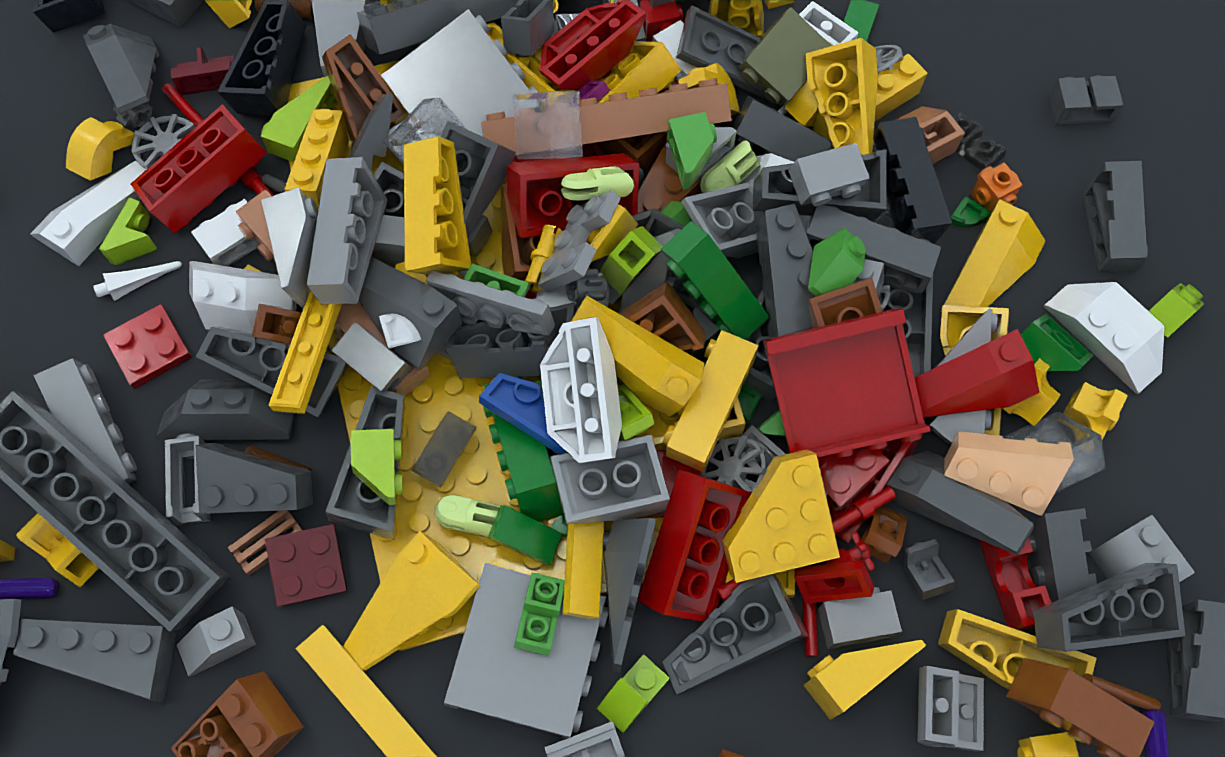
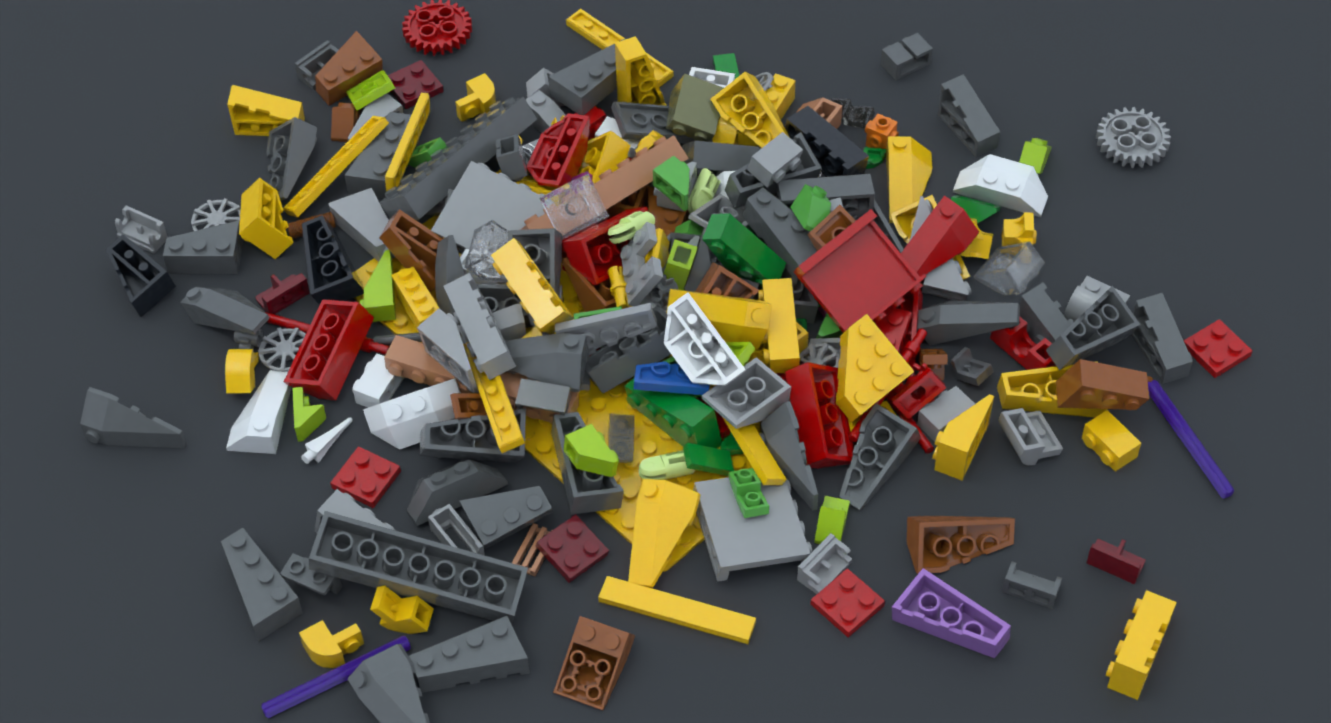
camera: 25 degrees left, 15 degrees down
(215, 640) = (542, 616): light grey slope -> none
(398, 330) = (555, 369): white tile -> none
(1009, 469) = (987, 282): light nougat wedge -> none

